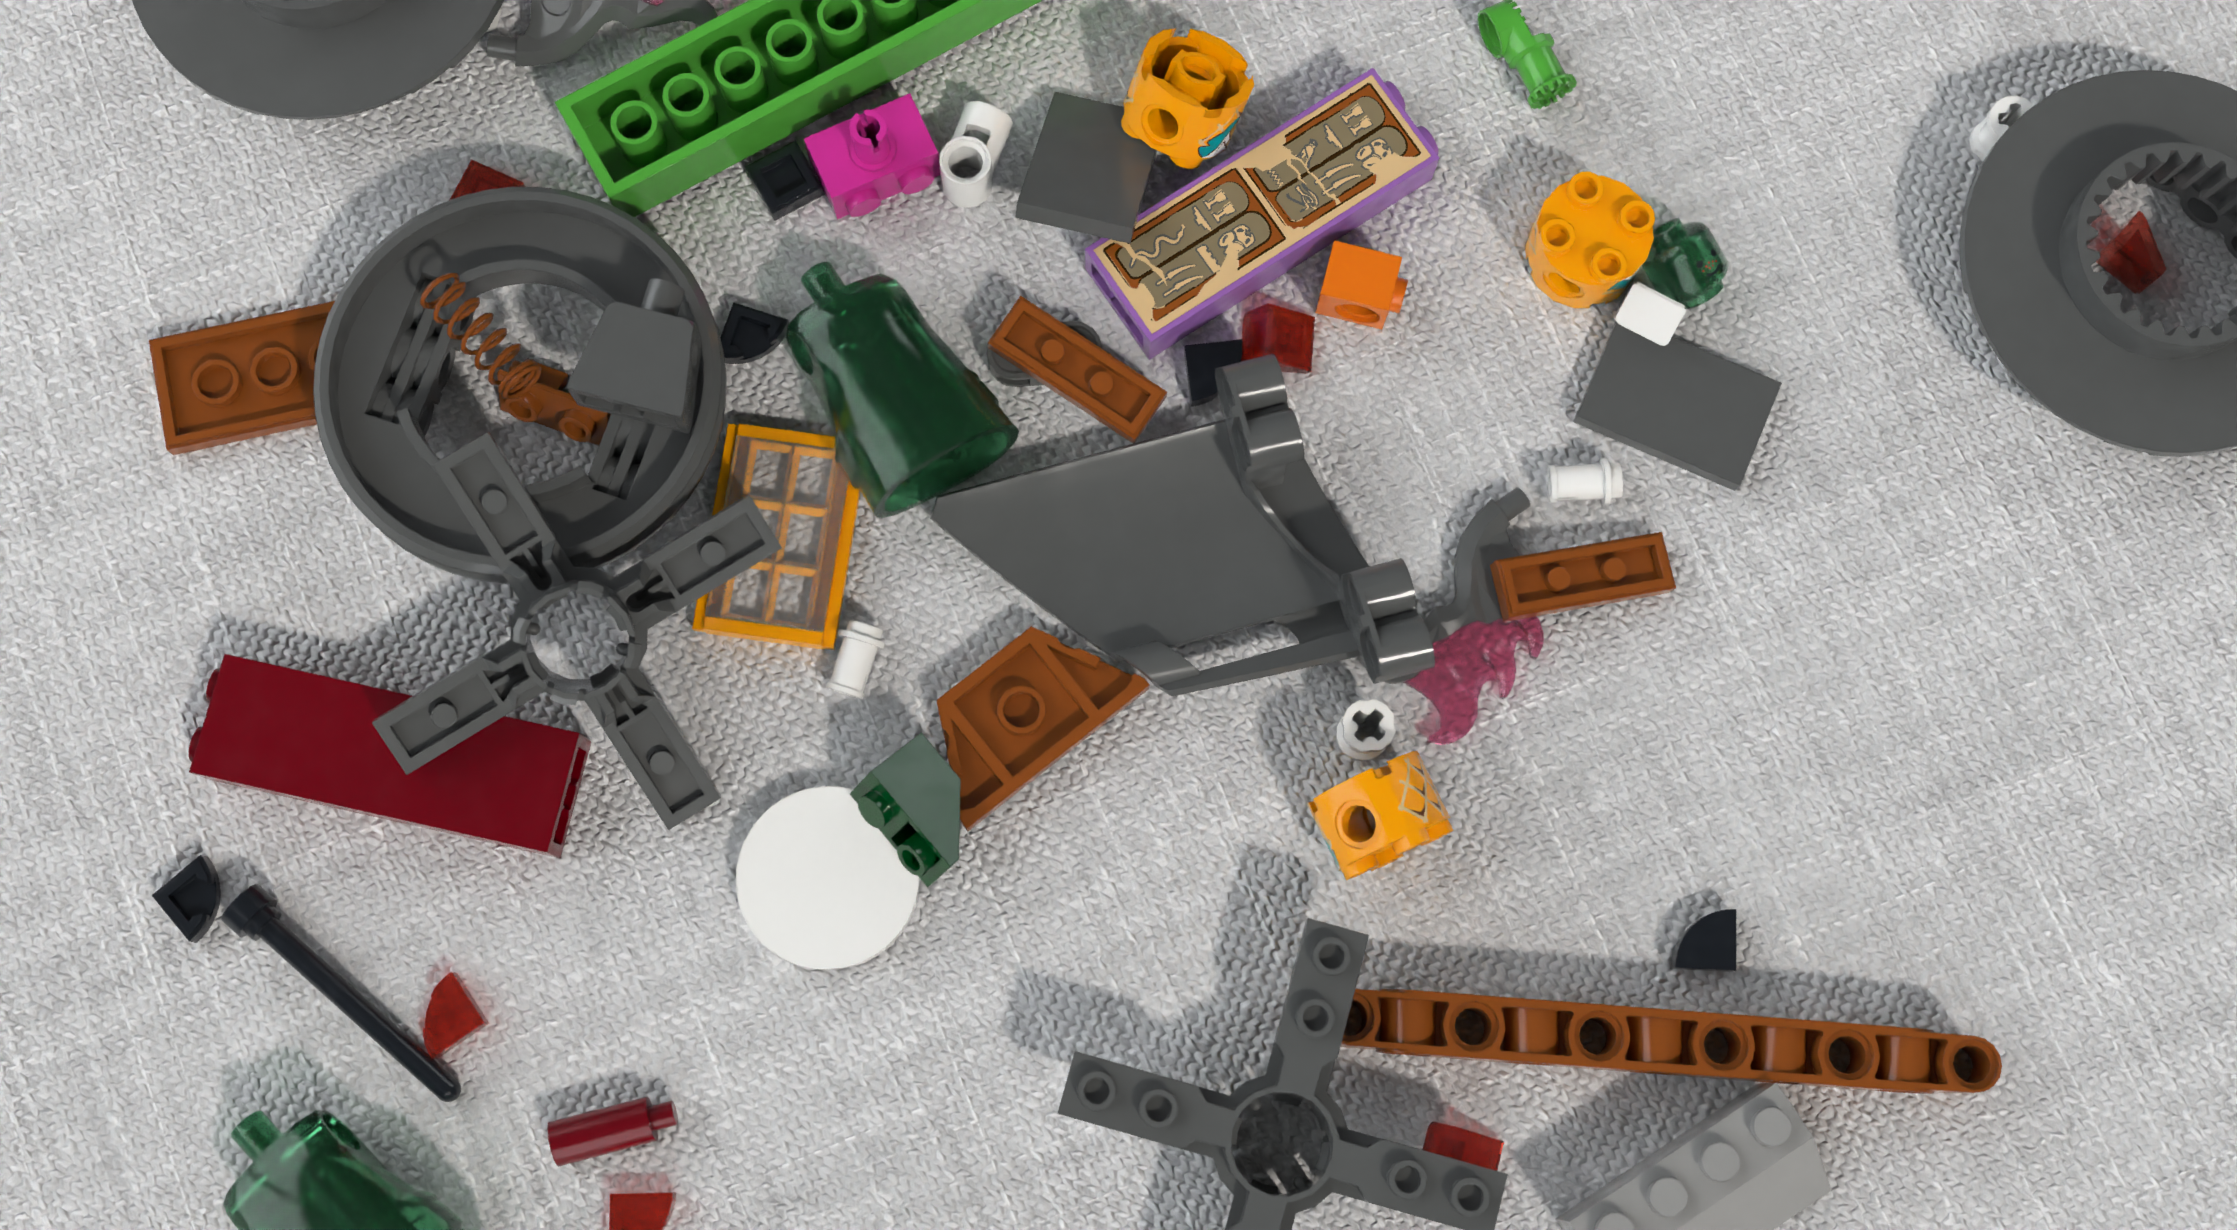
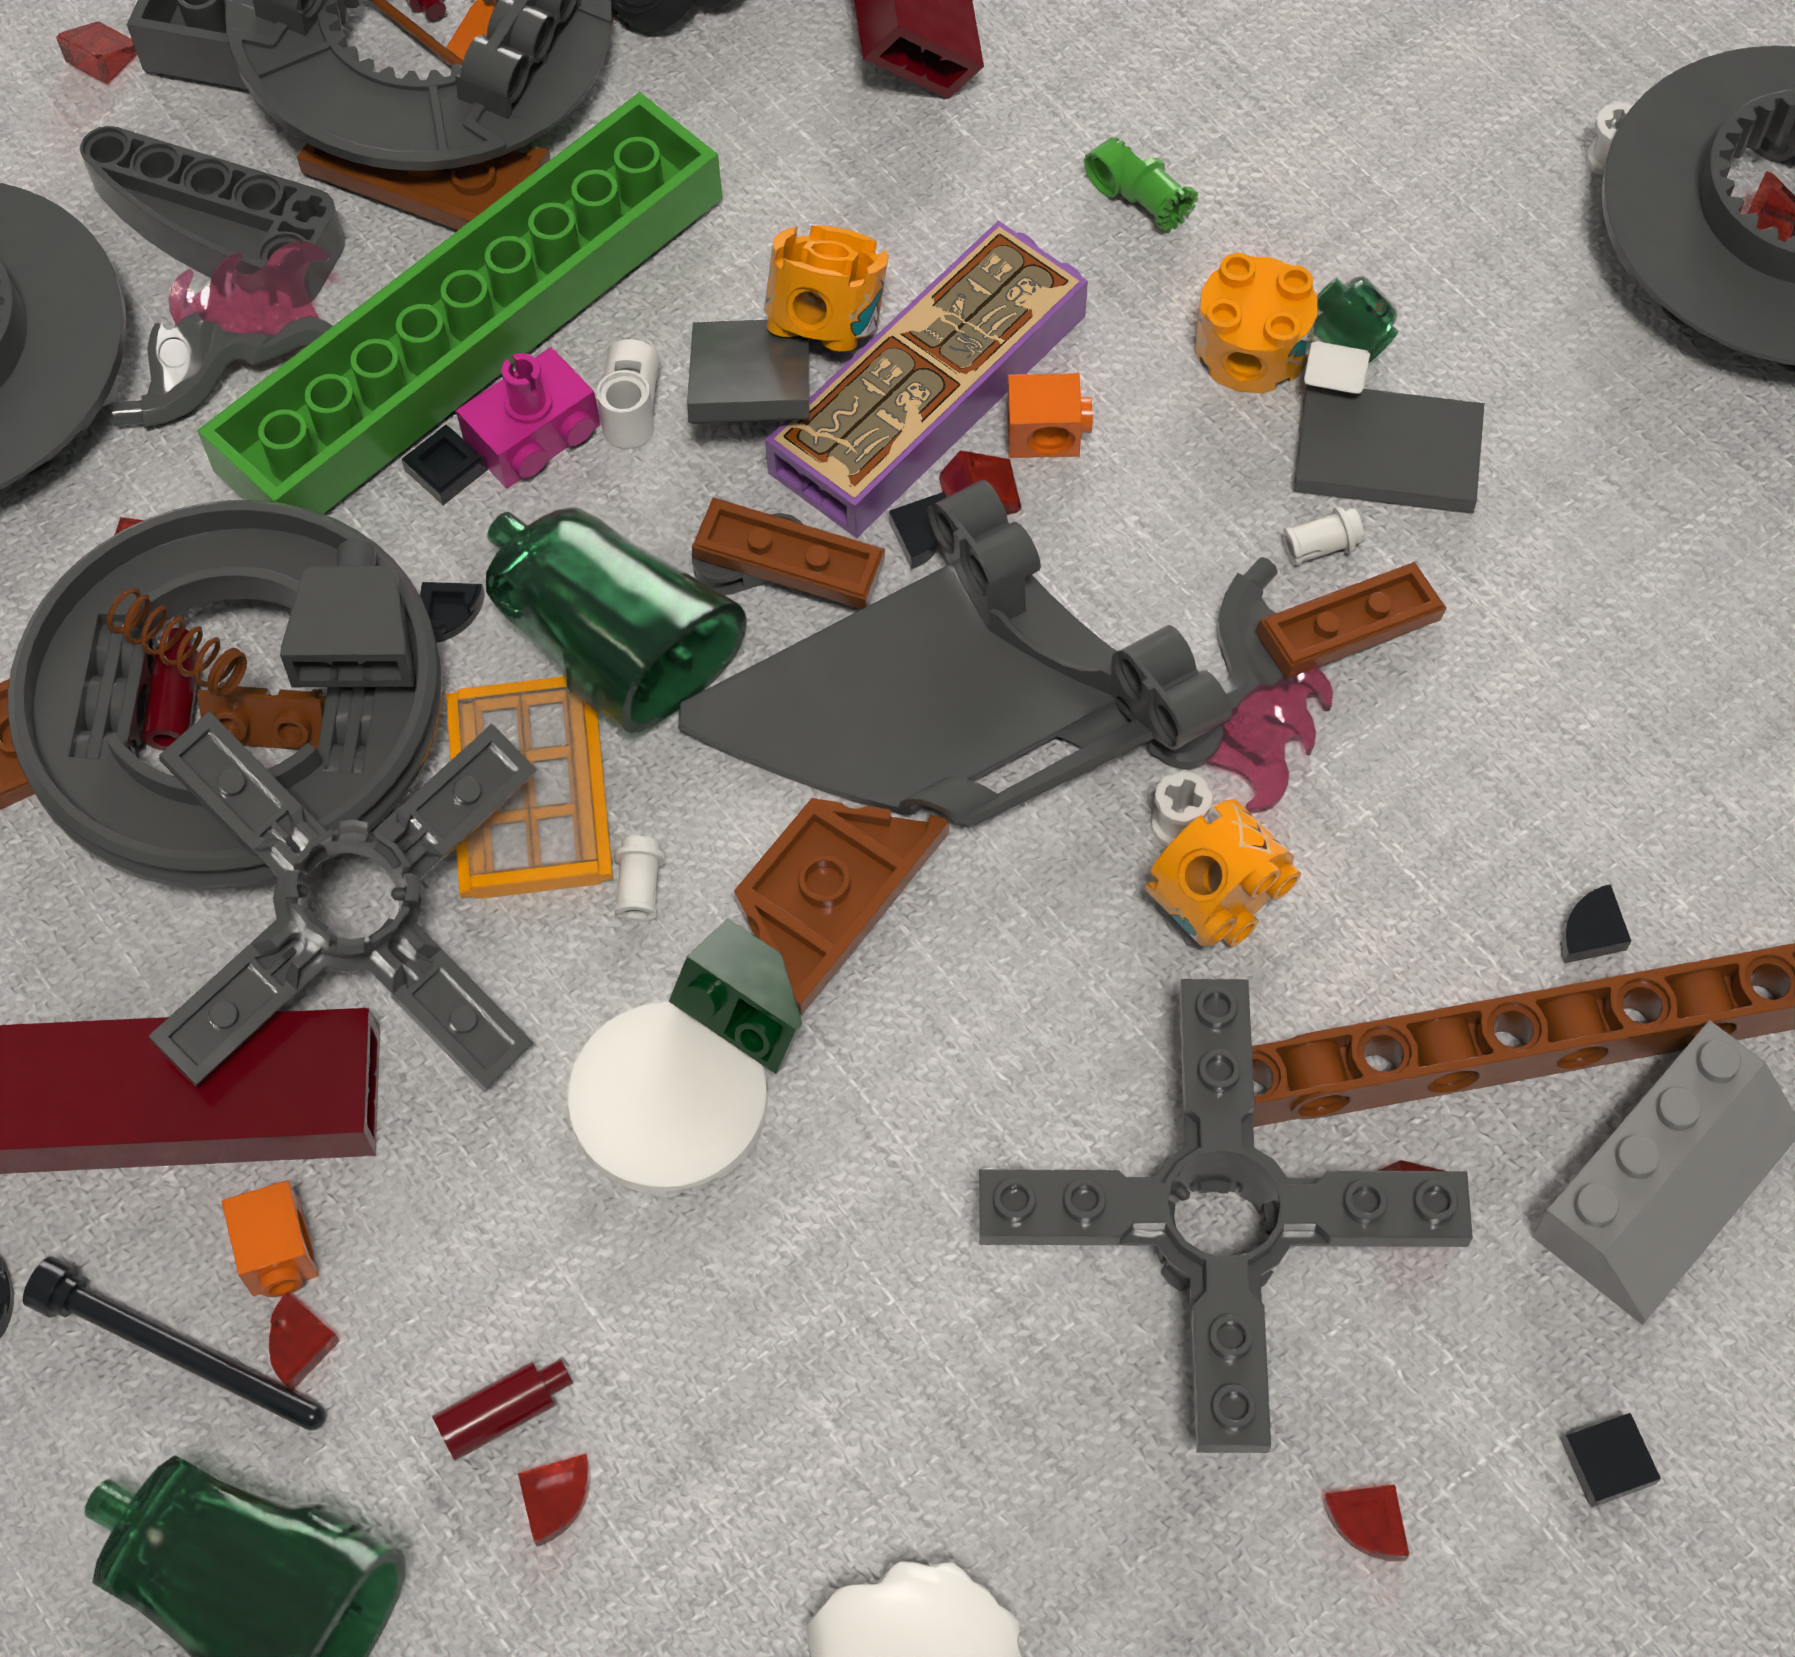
camera: 10 degrees left, 15 degrees down
(446, 923) = (270, 1240): none -> orange brick
(467, 384) = (170, 697): none -> dark red cylinder

